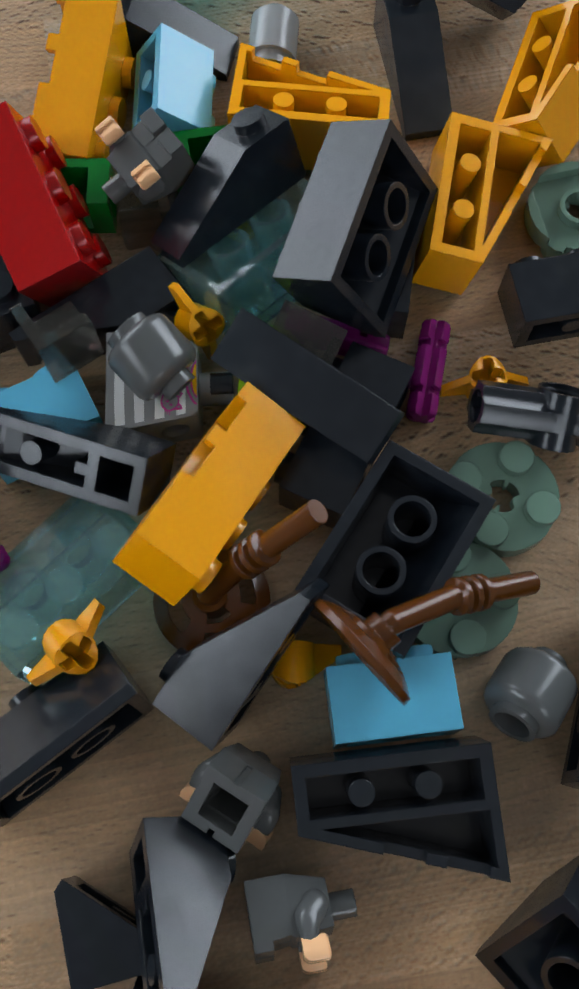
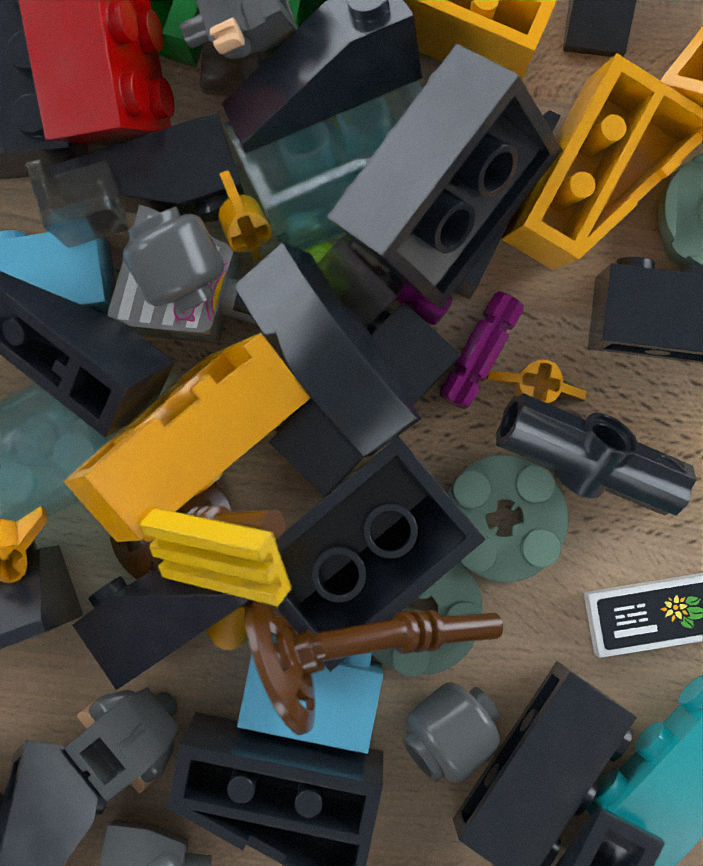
camera: 20 degrees right, 15 degrees up
(281, 571) = (217, 556): none -> yellow tile

